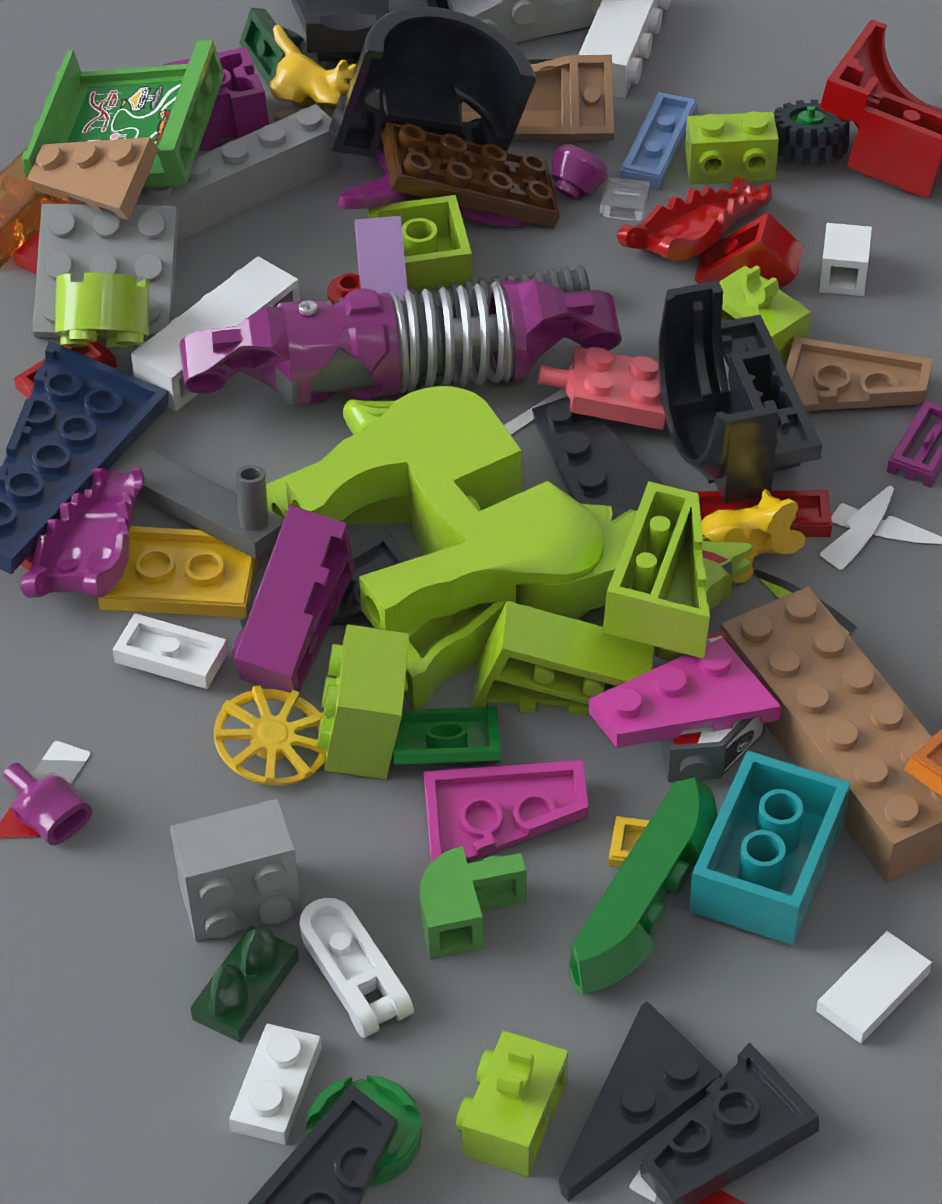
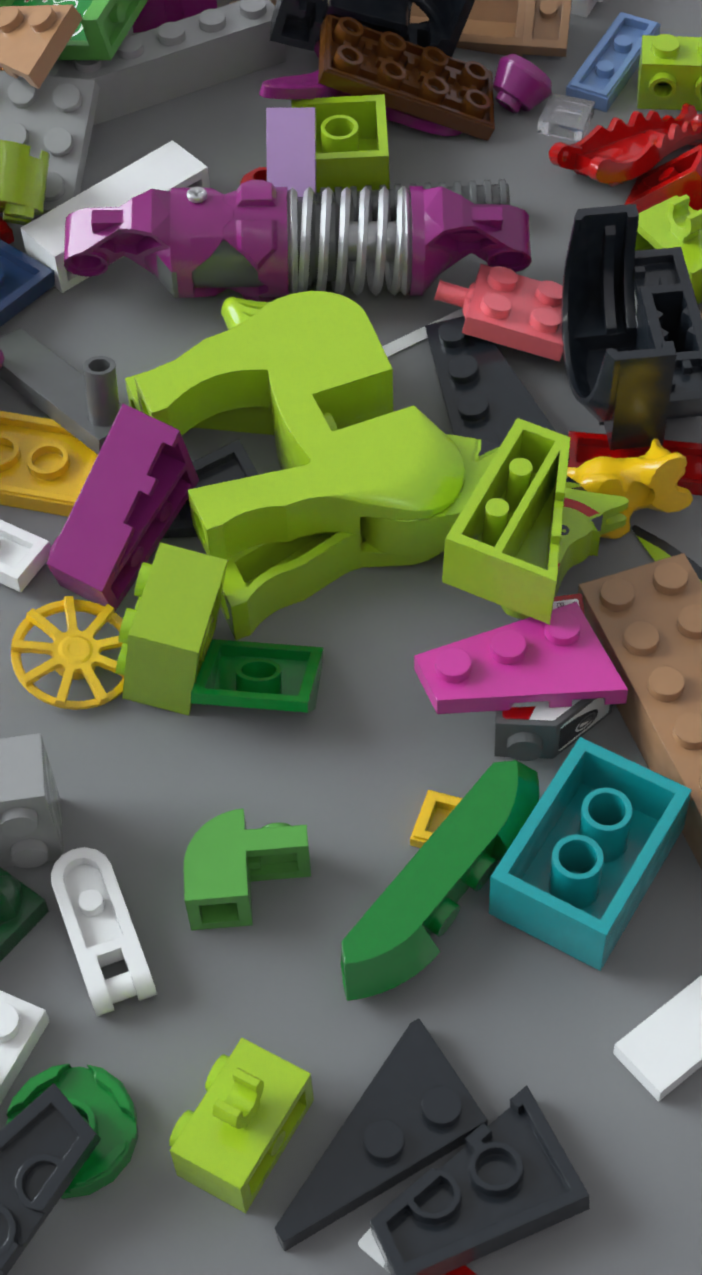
camera: 10 degrees right, 5 degrees up
(501, 805) = (301, 763): dark pink wing -> none
(553, 661) = (389, 605): lime wedge -> none

